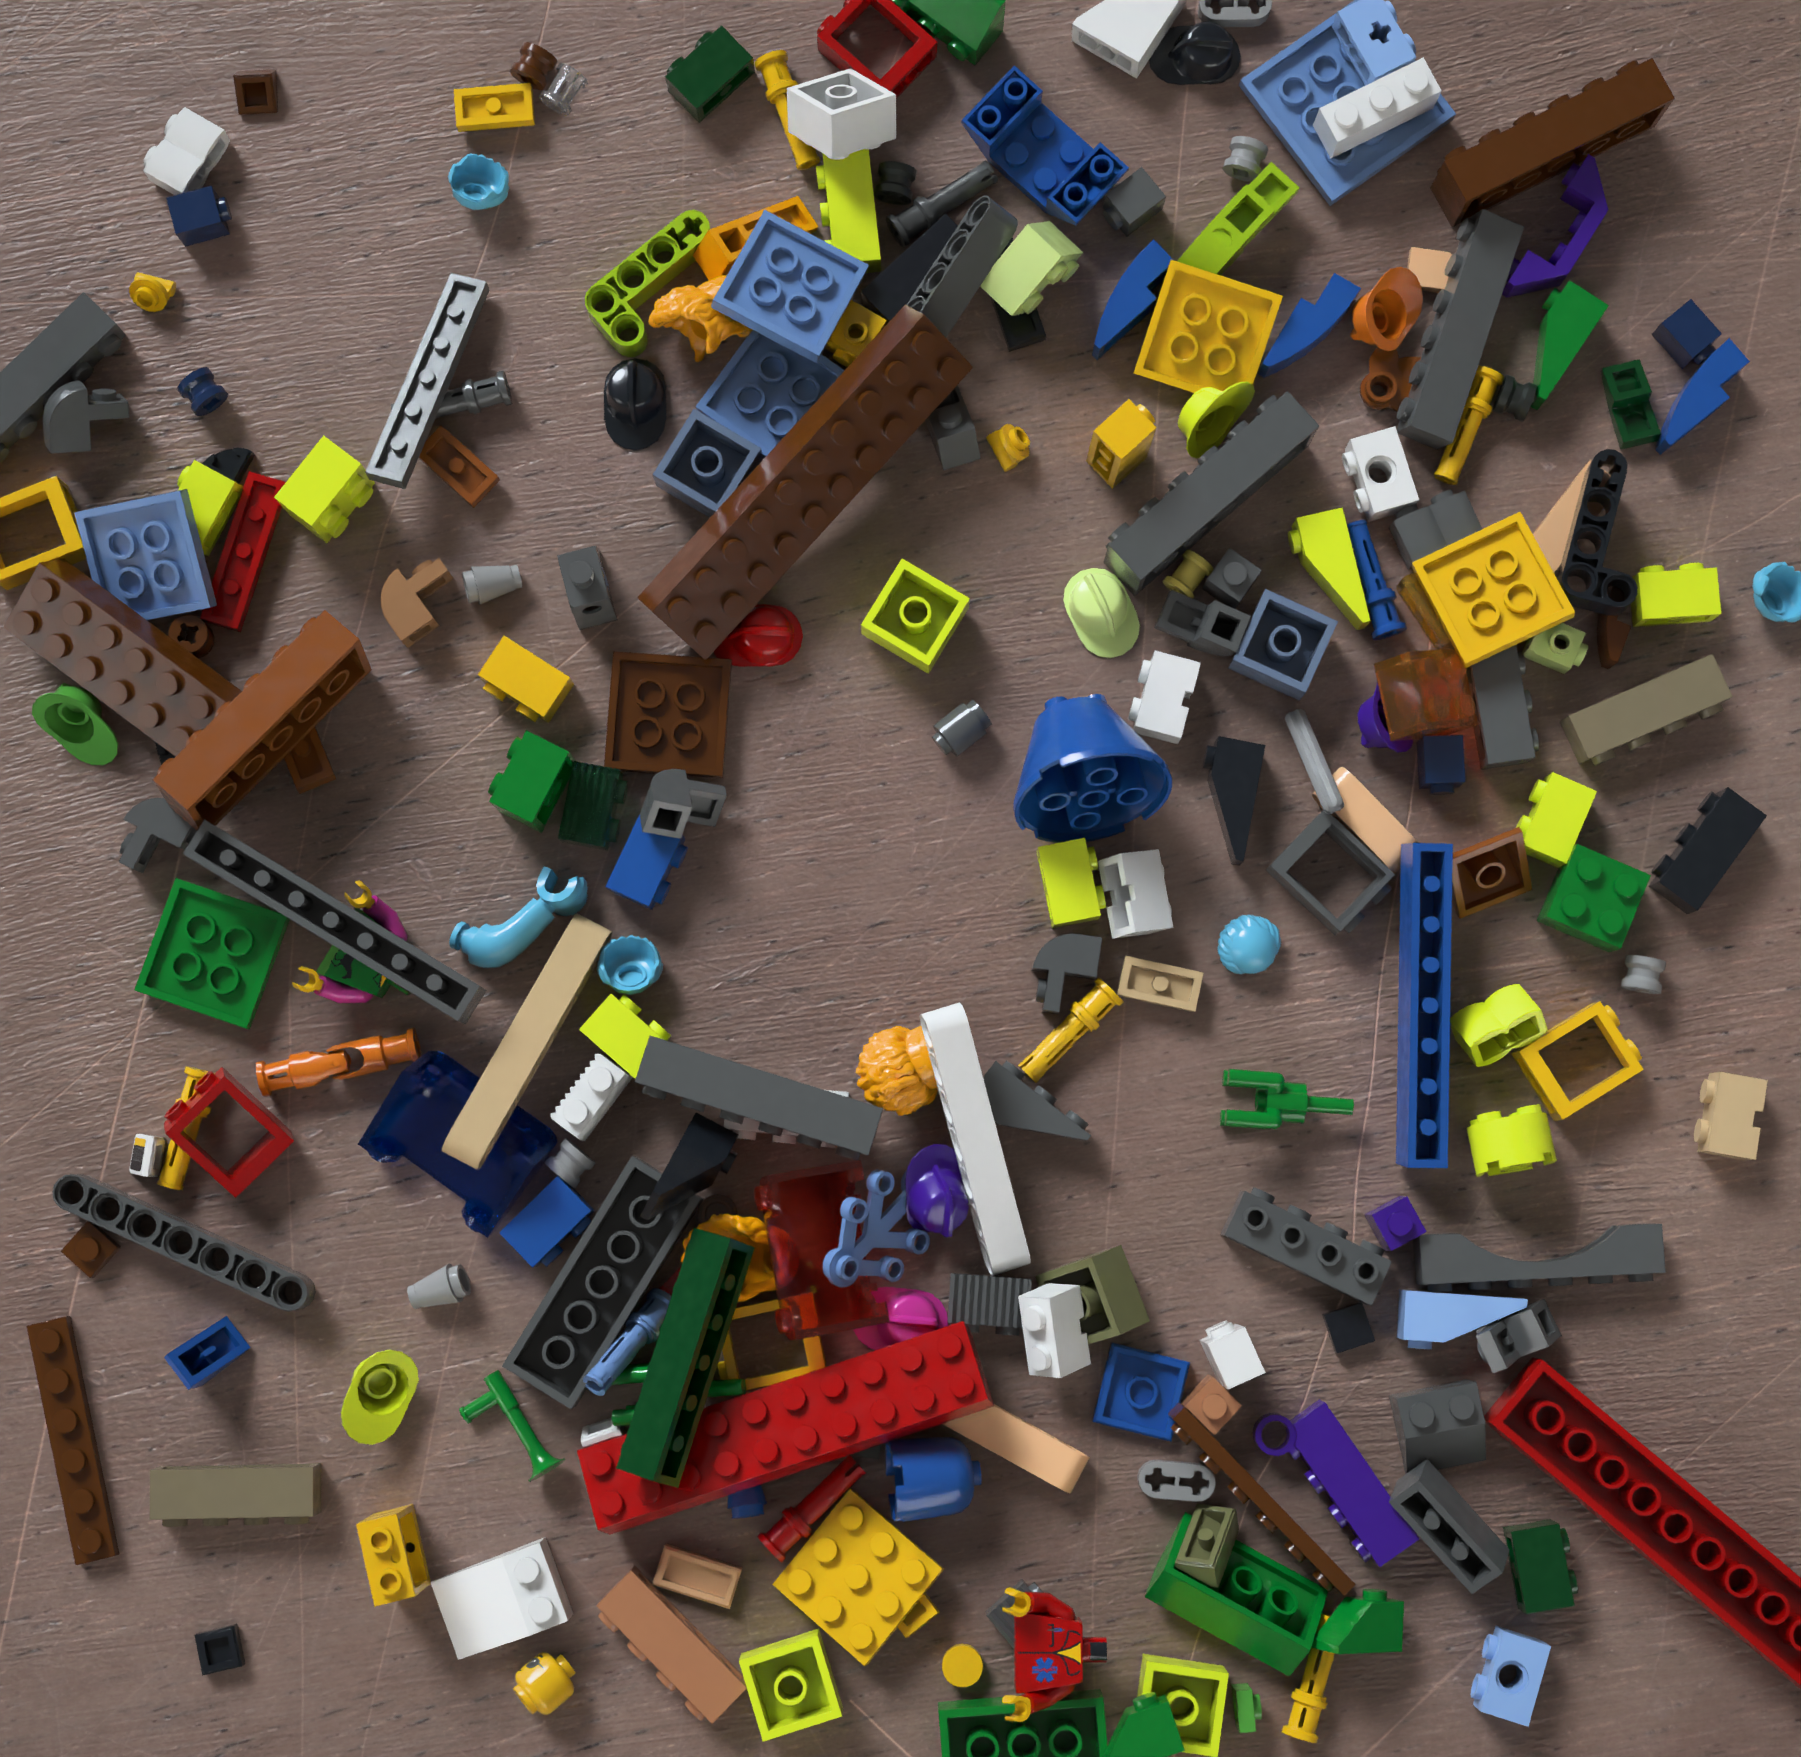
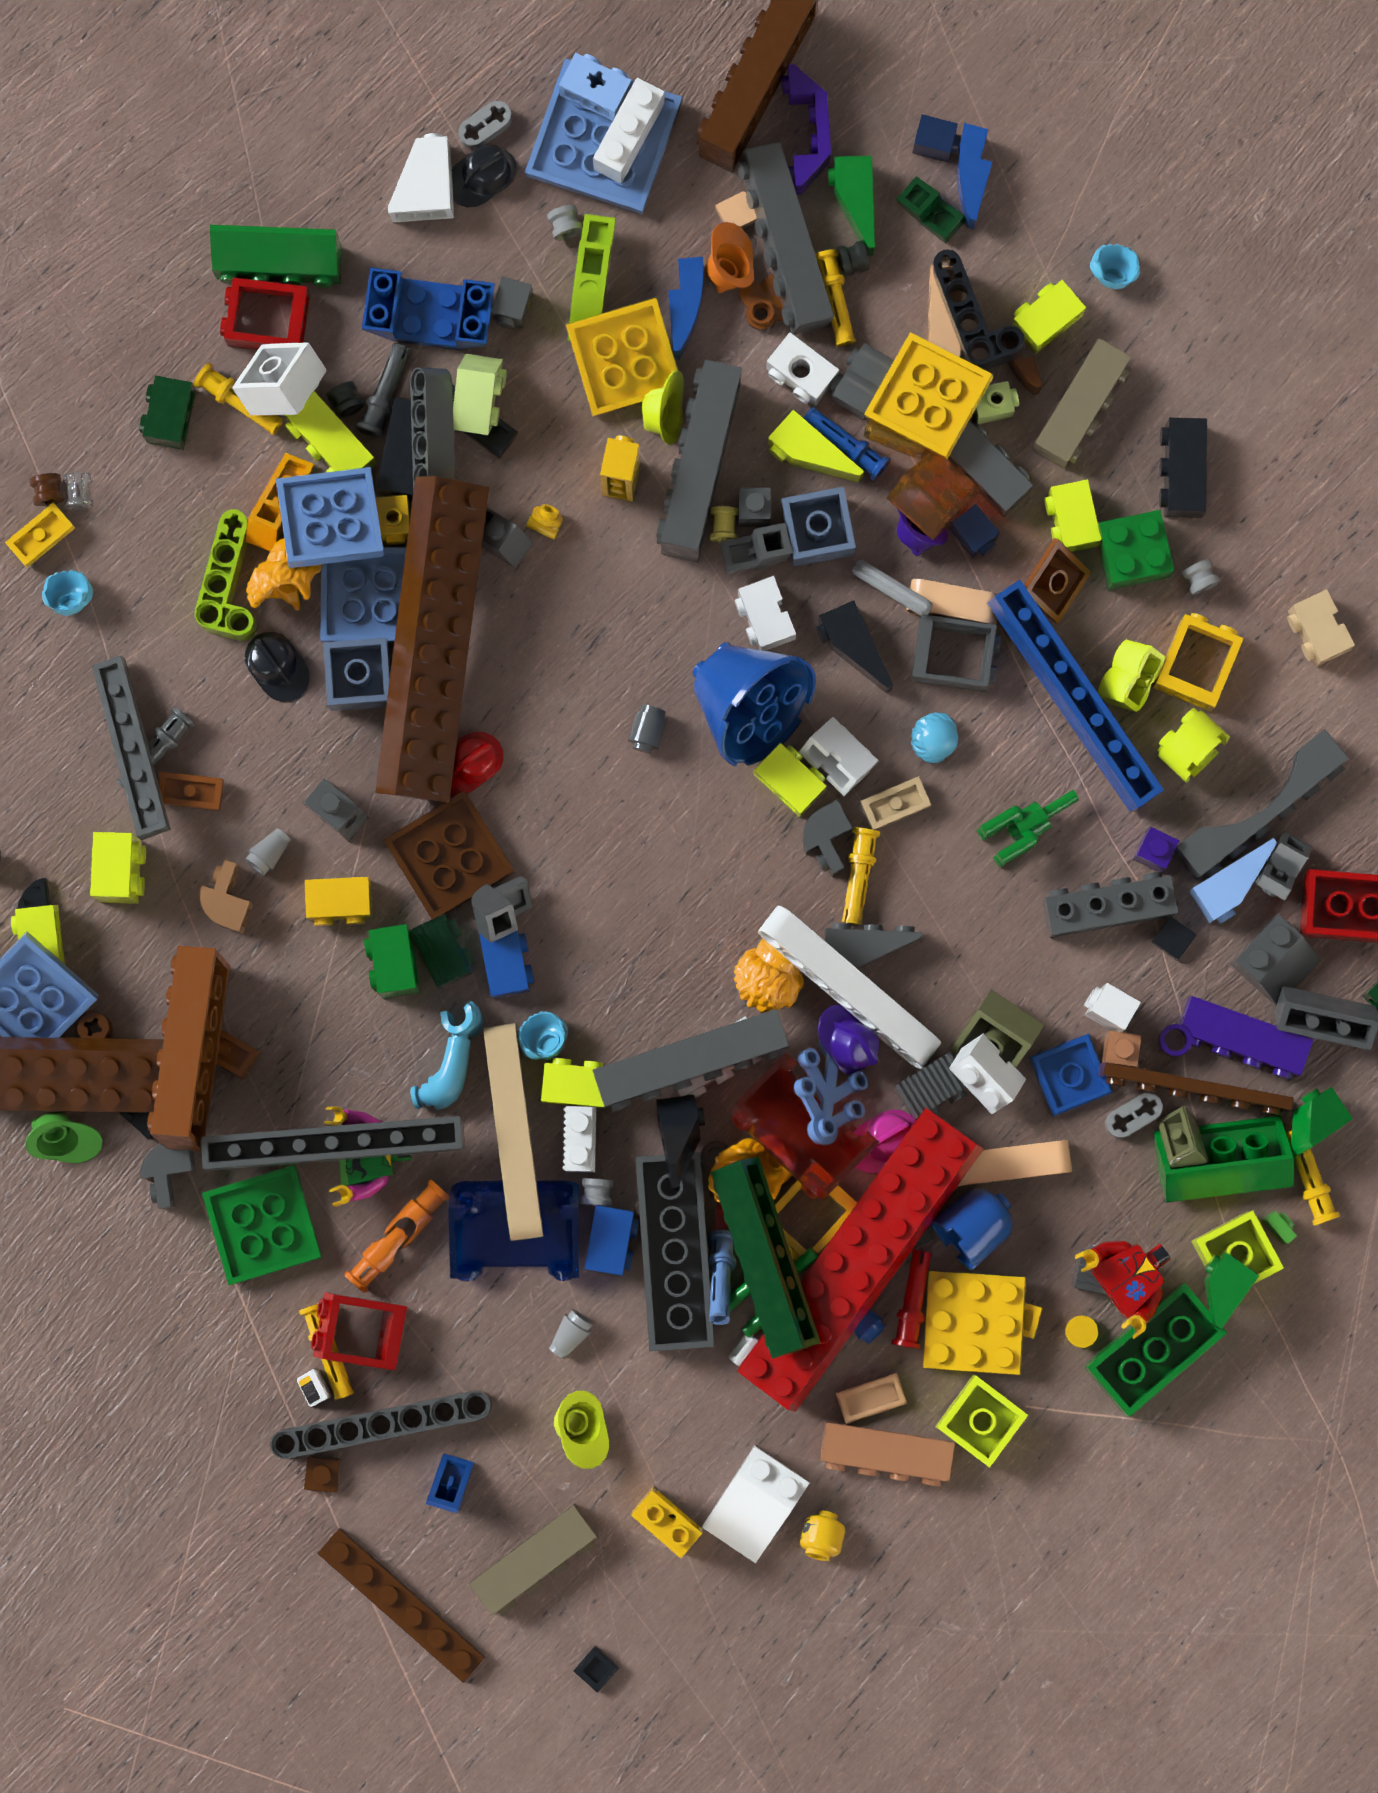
camera: 35 degrees left, 0 degrees up
(244, 551) = (89, 945): red plate -> none
(501, 1394) = (663, 1374): green piece -> none
(915, 616) = (565, 676): neon yellow brick -> none
(1101, 612) = (684, 588): yellowish green piece -> none
(1131, 297) = (556, 366): blue slope -> none

